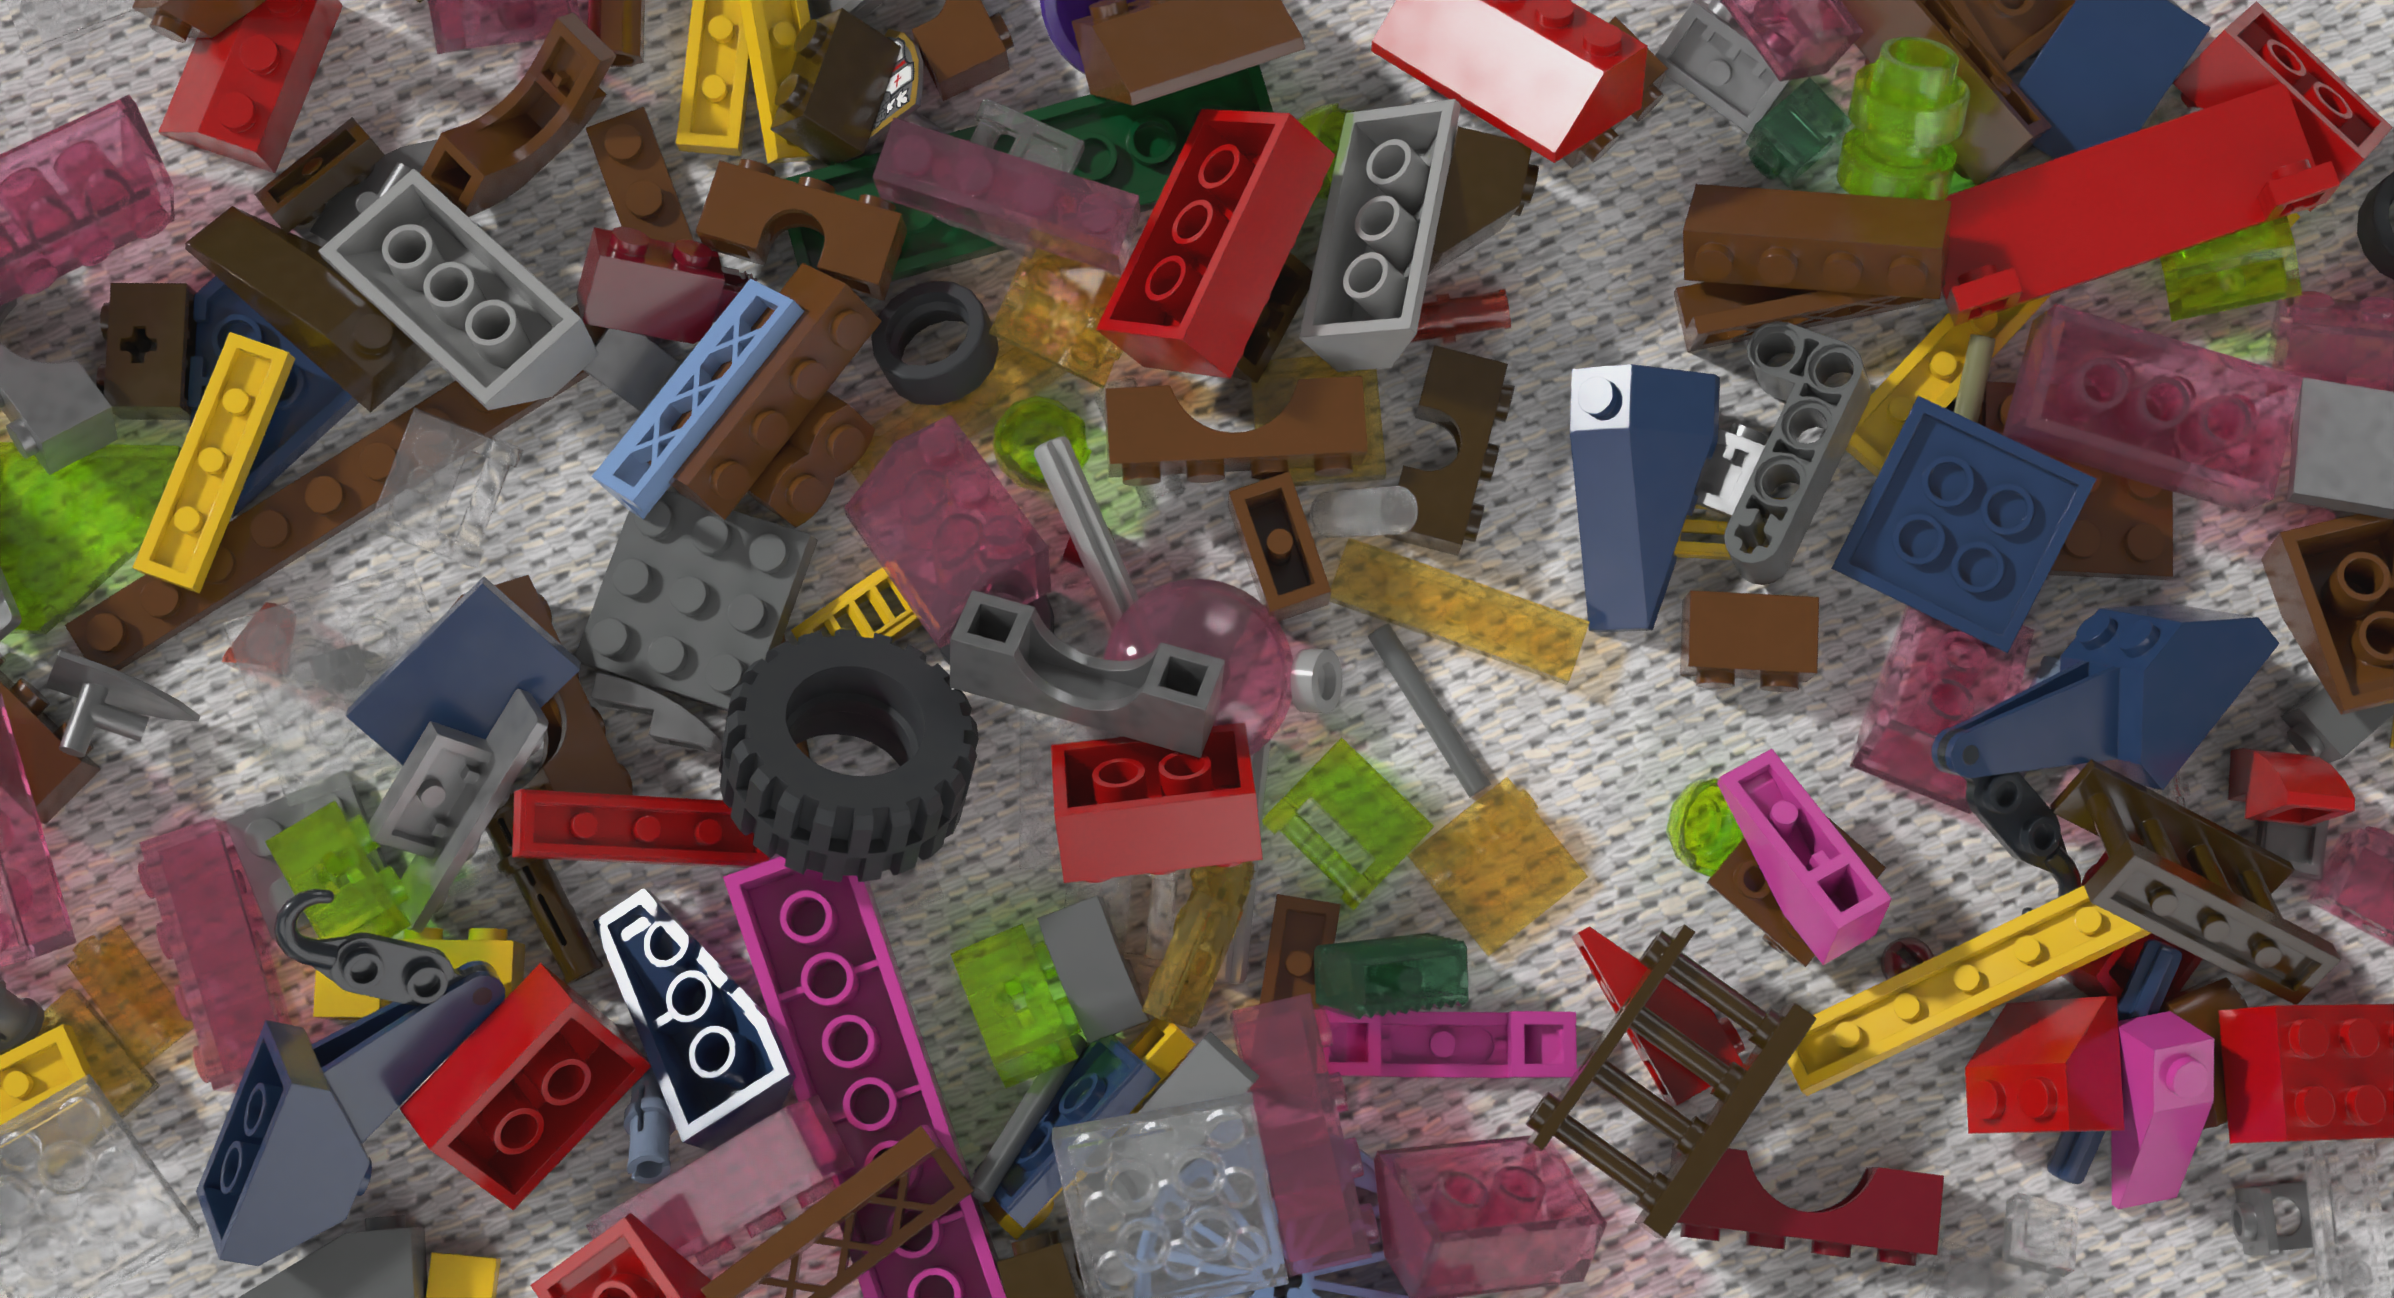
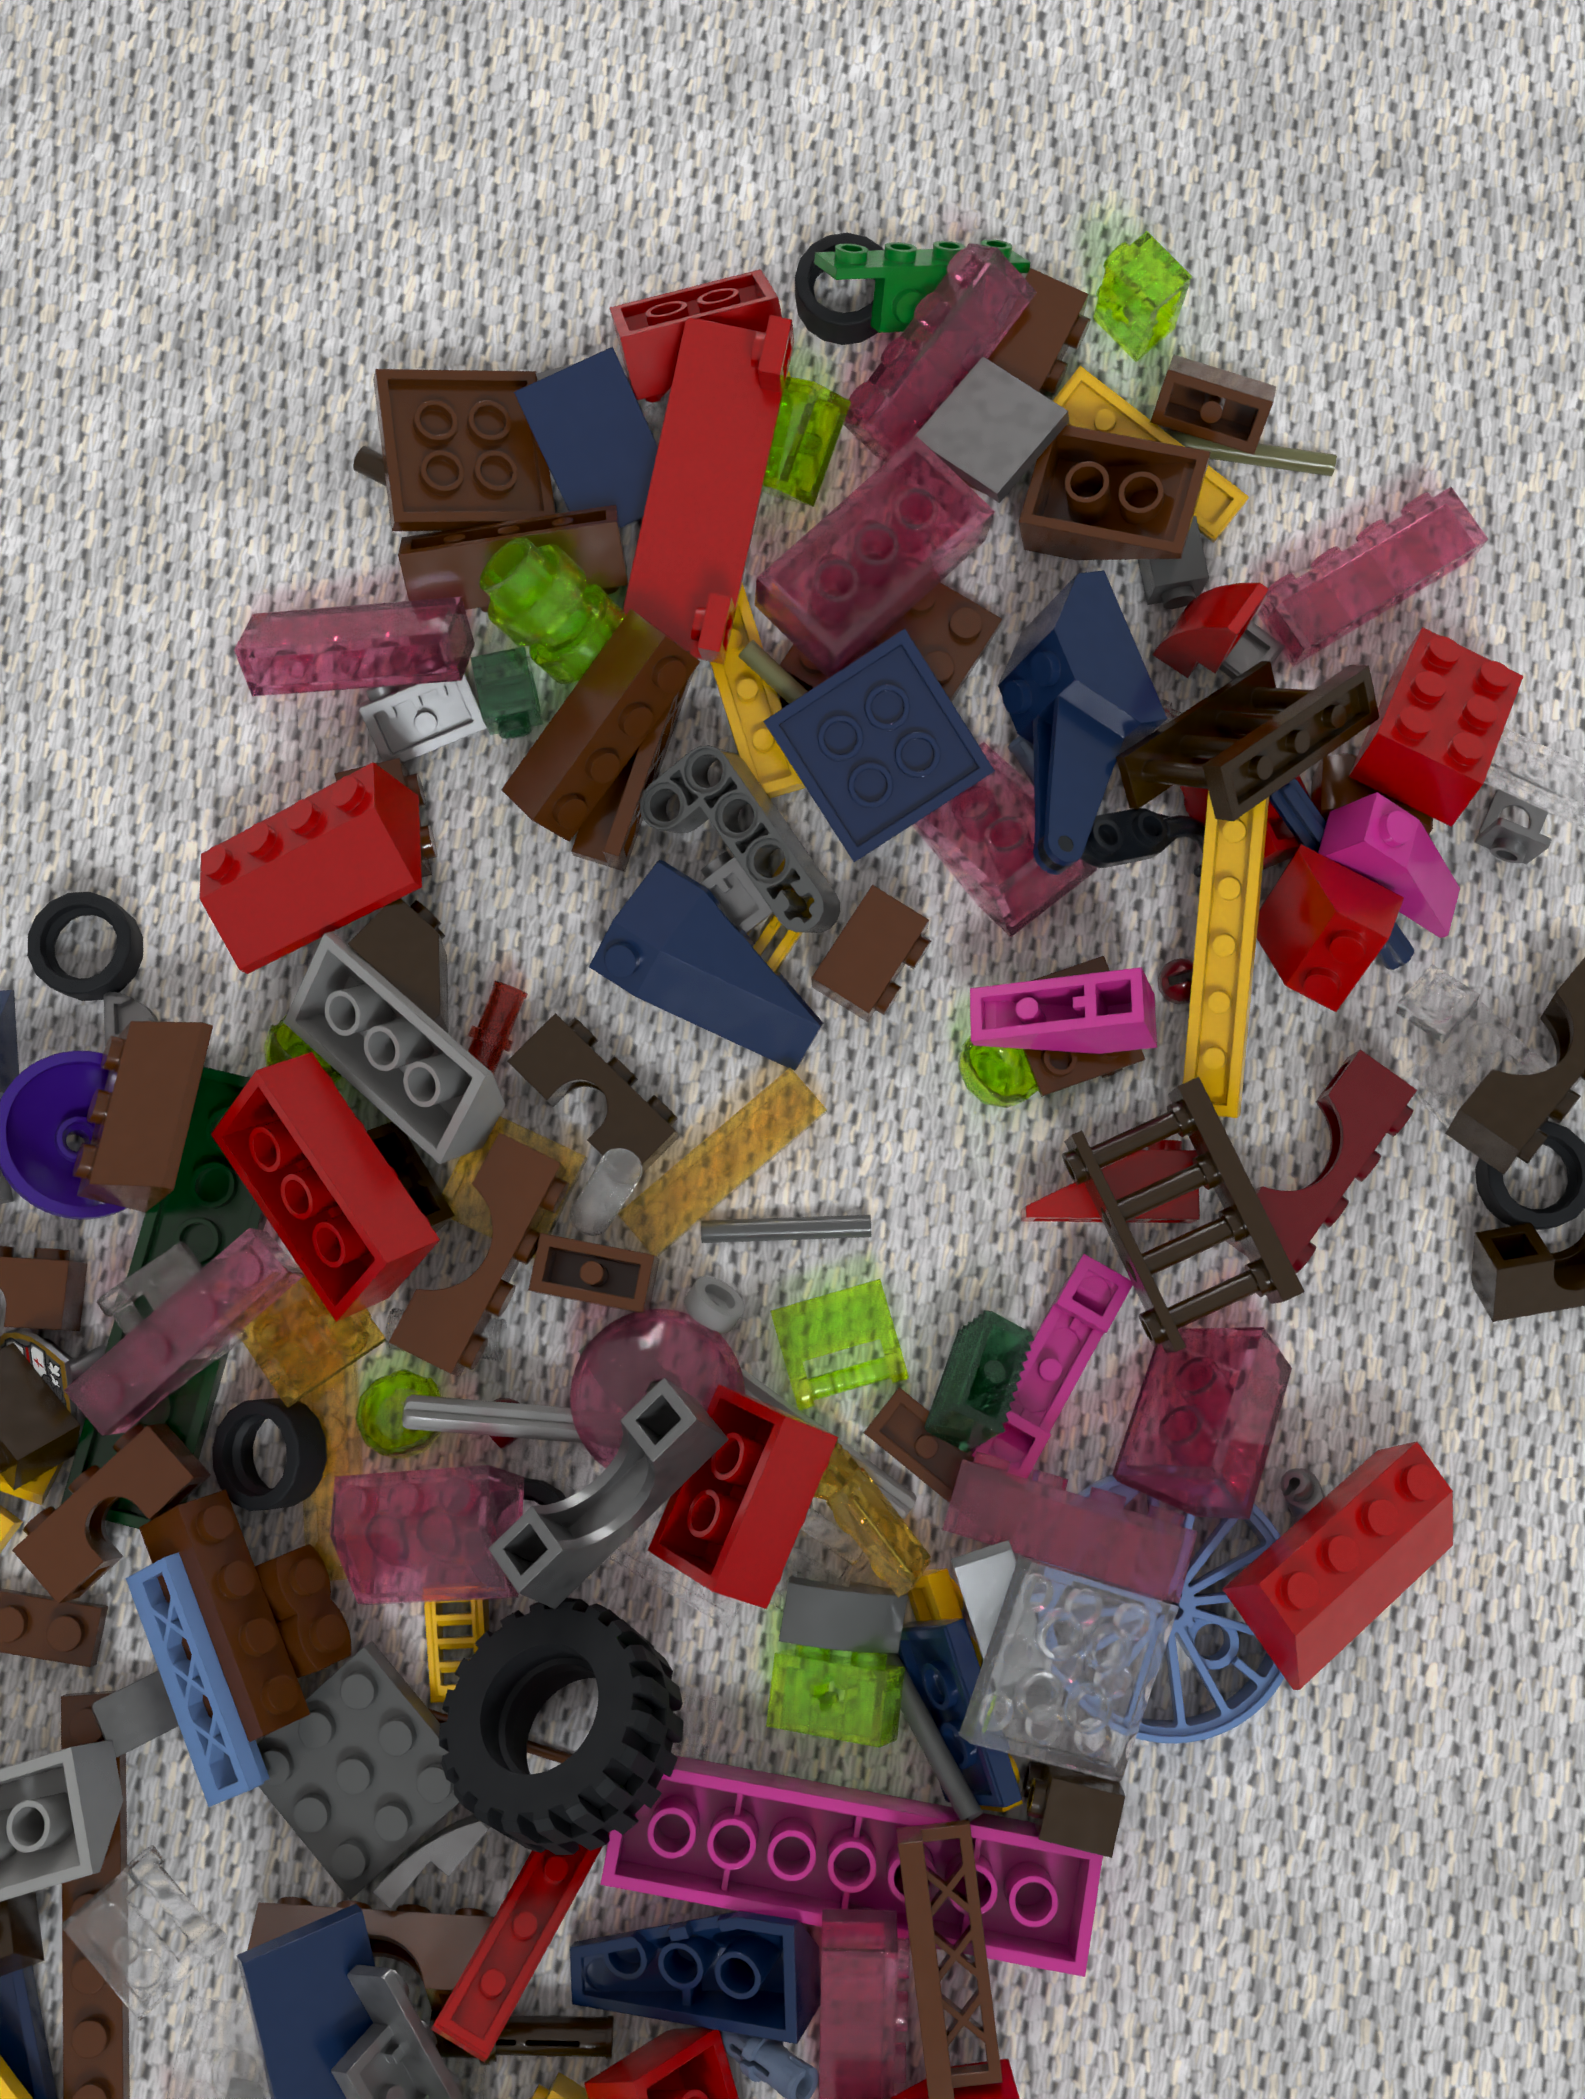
camera: 55 degrees left, 0 degrees up
(654, 285) = (83, 1659): dark red hinge -> none
(1497, 865) = (936, 1246): clear yellow hinge -> none

